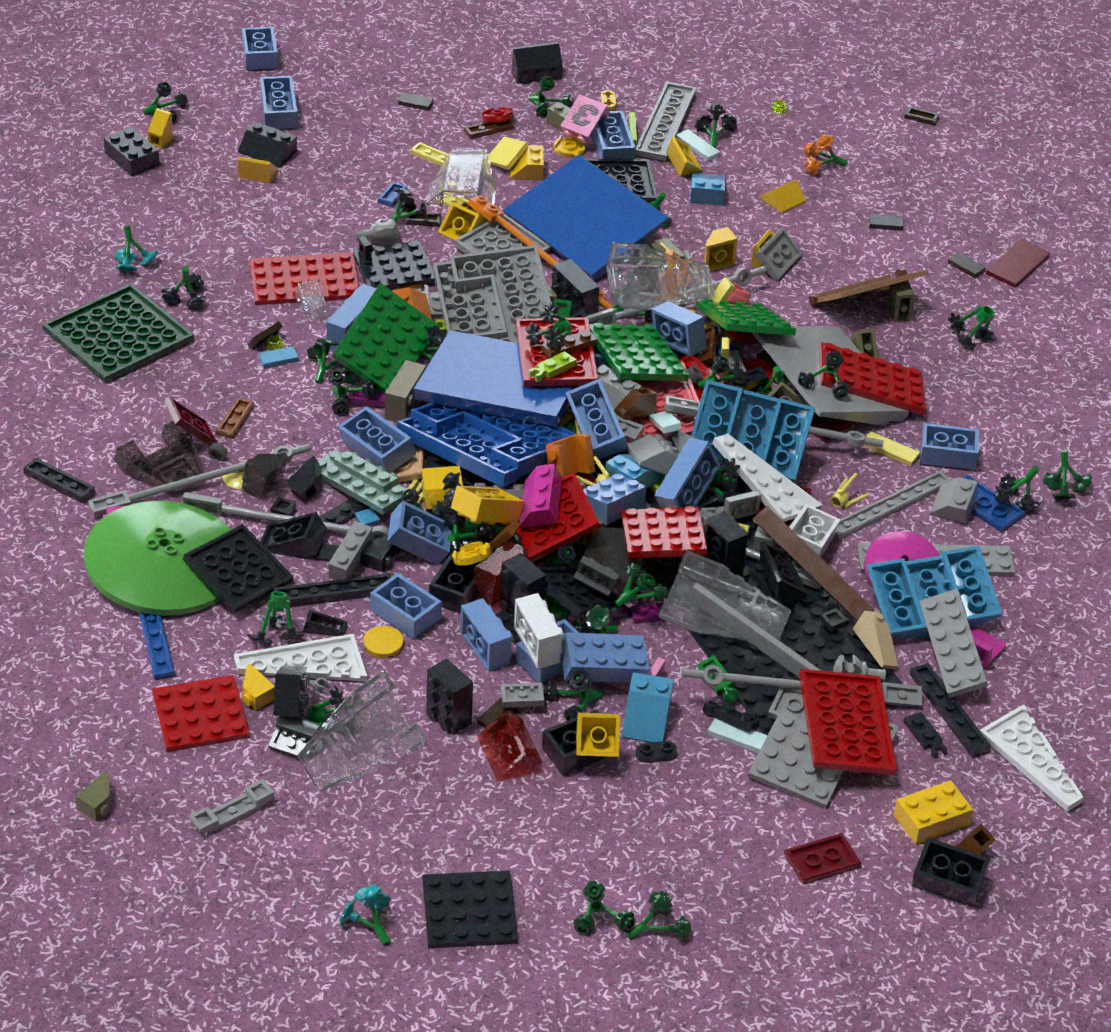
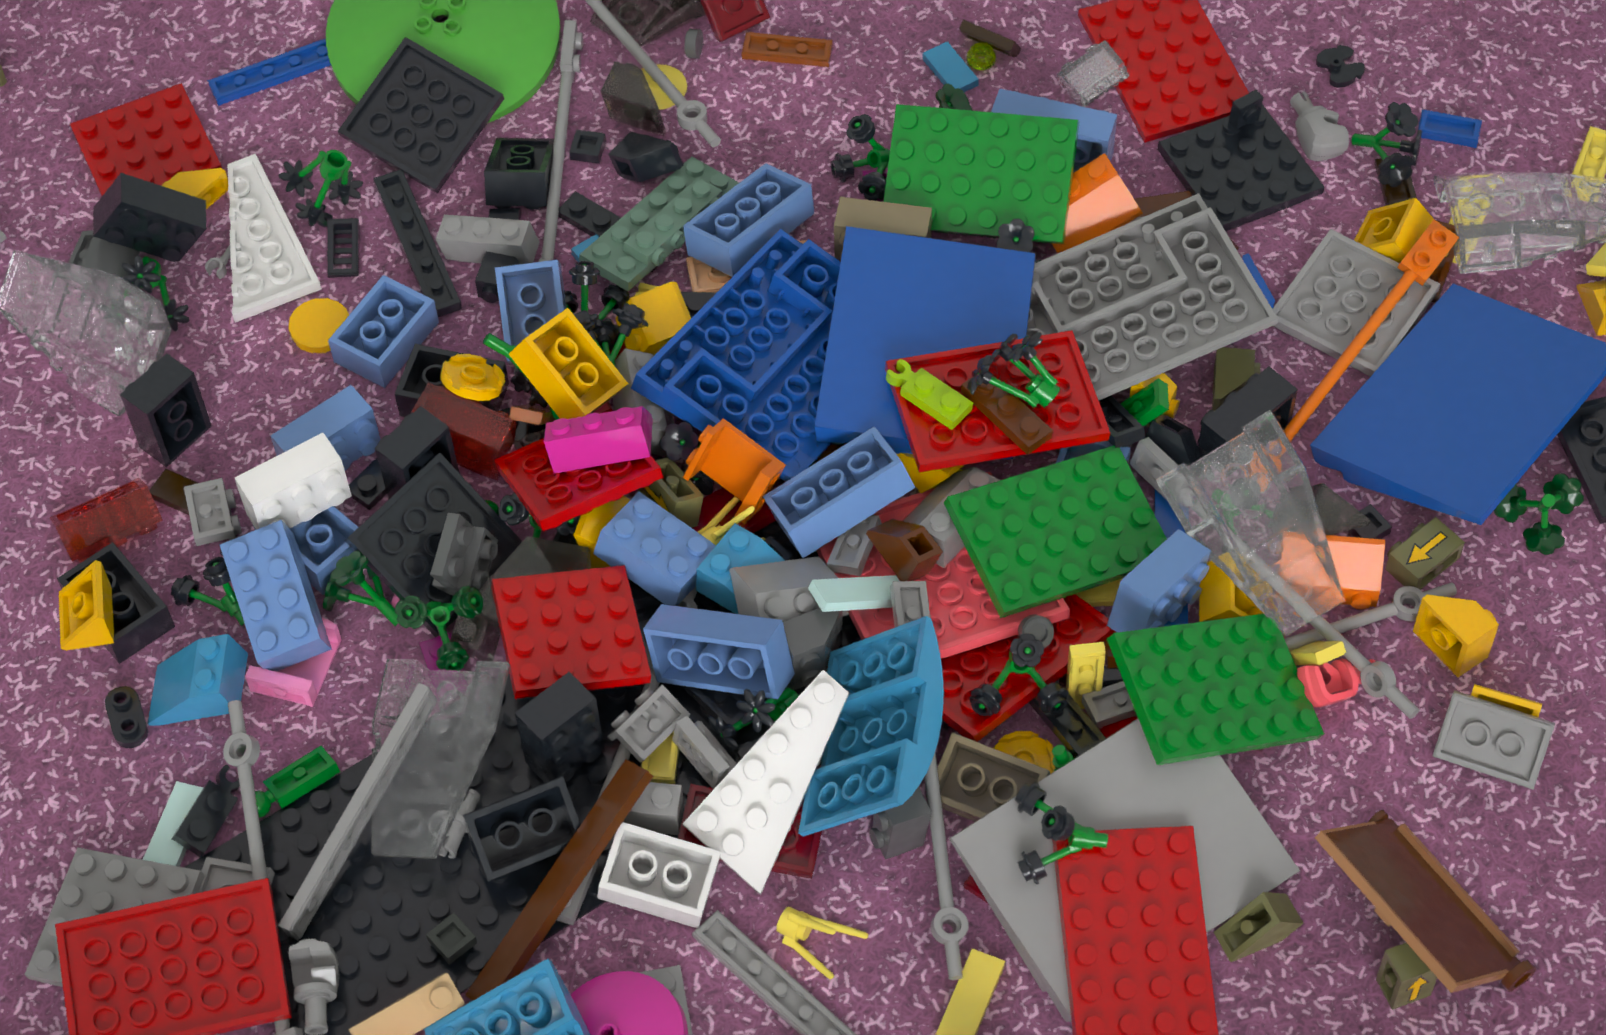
camera: 85 degrees right, 15 degrees up
(339, 219) = (1341, 73): none -> black piece

